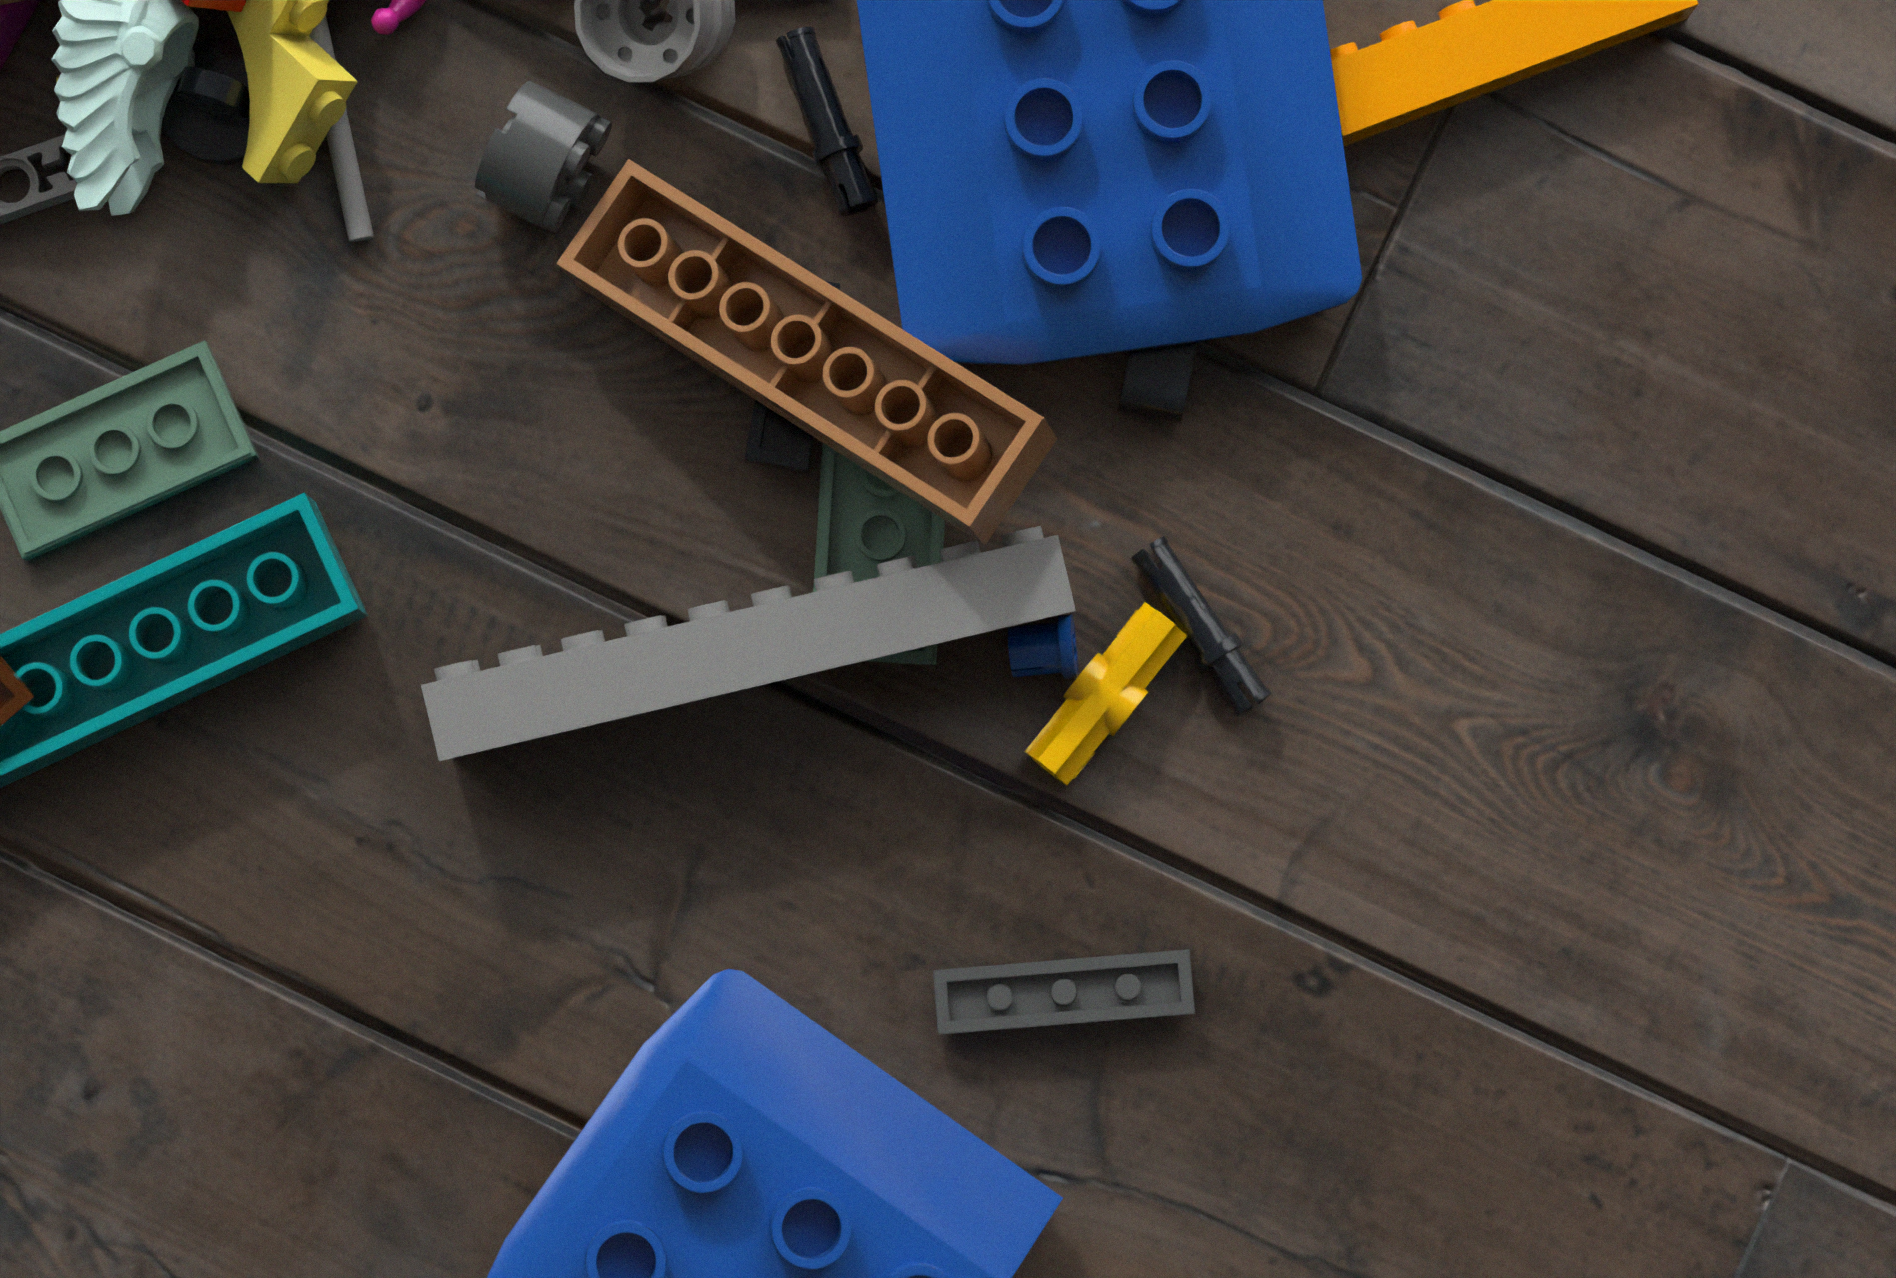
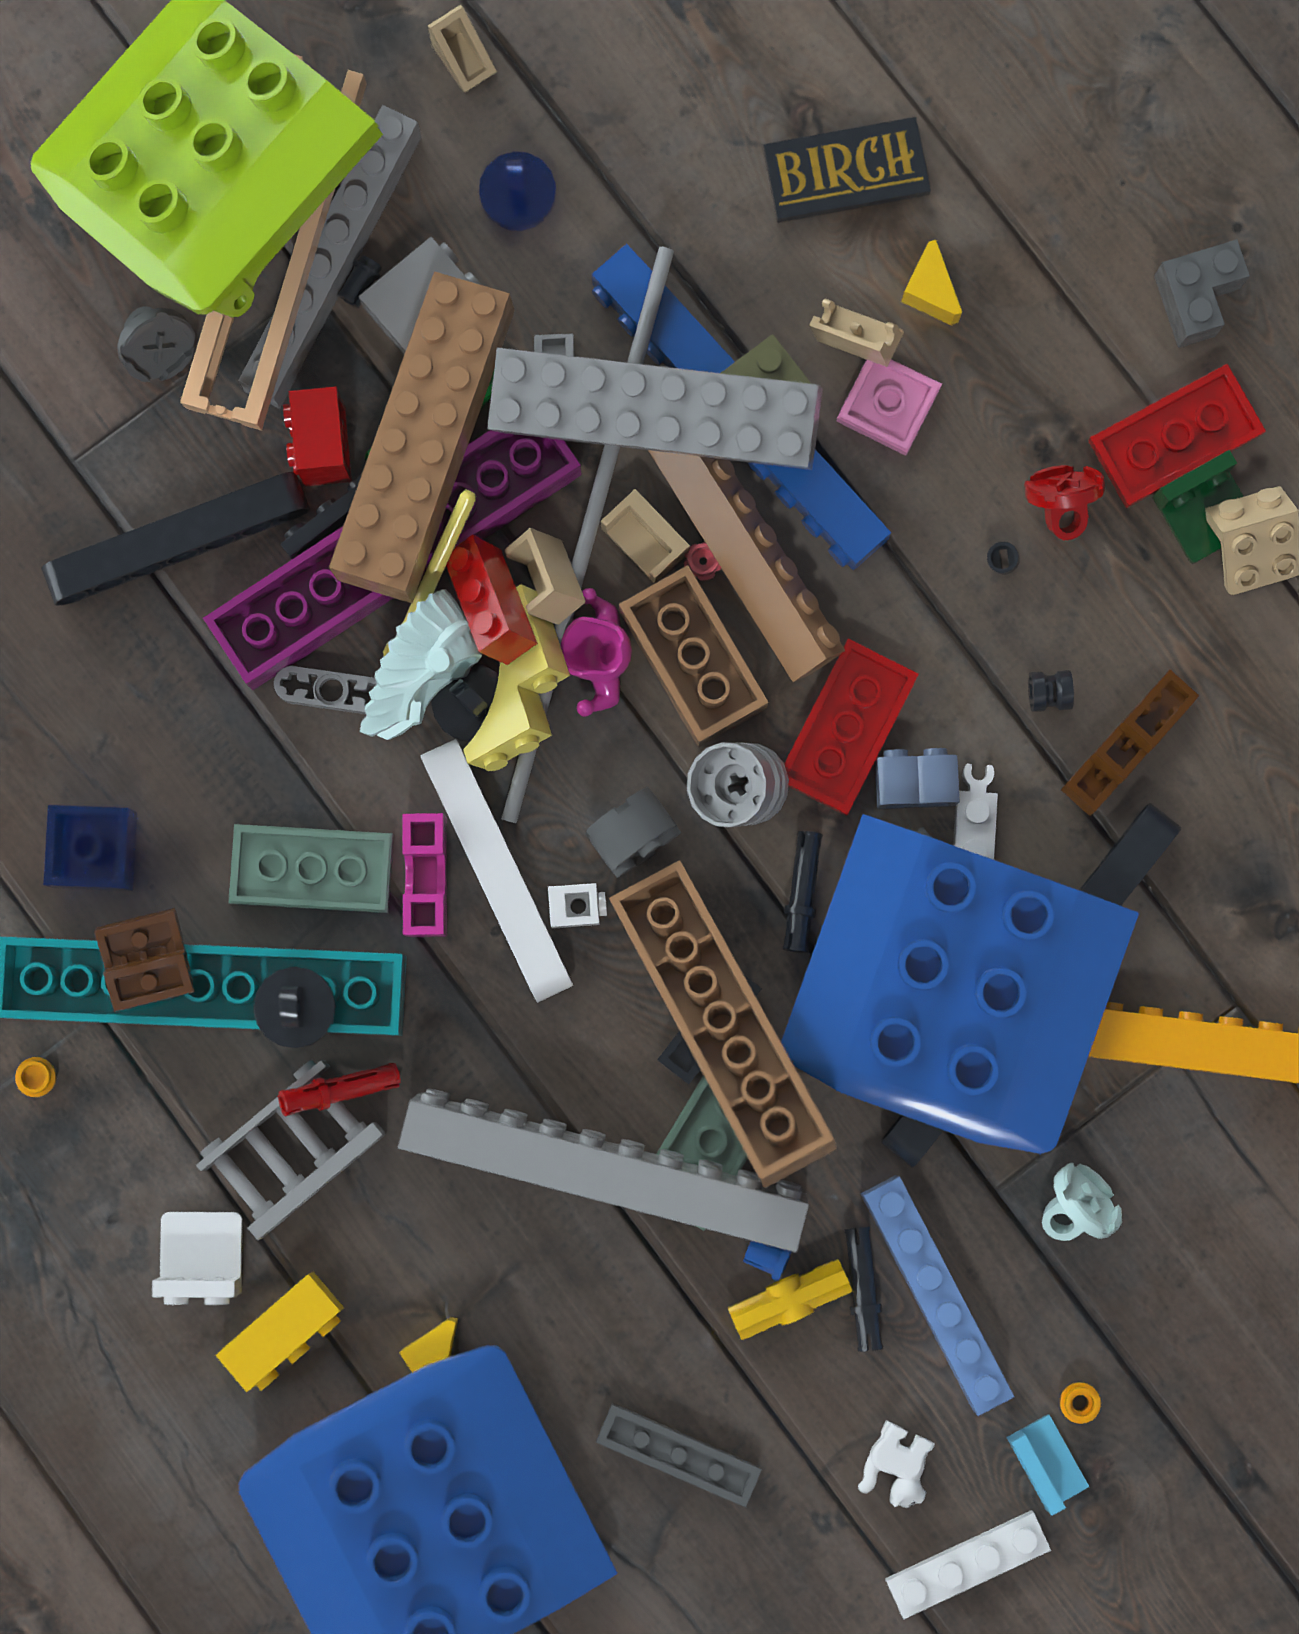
camera: 30 degrees right, 0 degrees up
(190, 644) = (295, 1007): none -> black tile
(242, 1072) = (200, 1257): none -> white bracket
(280, 371) = (425, 875): none -> dark pink arch
(296, 747) = (326, 1092): none -> red pin
(331, 904) = (298, 1189): none -> light grey fence
(379, 314) = (496, 870): none -> white beam
(414, 1118) = (281, 1333): none -> yellow brick
(495, 296) = (560, 905): none -> white brick
(635, 1020) = (431, 1346): none -> yellow slope
(1306, 578) = (937, 1295): none -> medium blue brick
(1371, 836) = (896, 1459): none -> white animal
(1441, 340) = (1086, 1201): none -> light aqua tile
(1546, 931) = (968, 1564): none -> white plate
(1583, 733) = (1048, 1463): none -> medium azure panel
(1602, 617) = (1092, 1406): none -> light orange plate

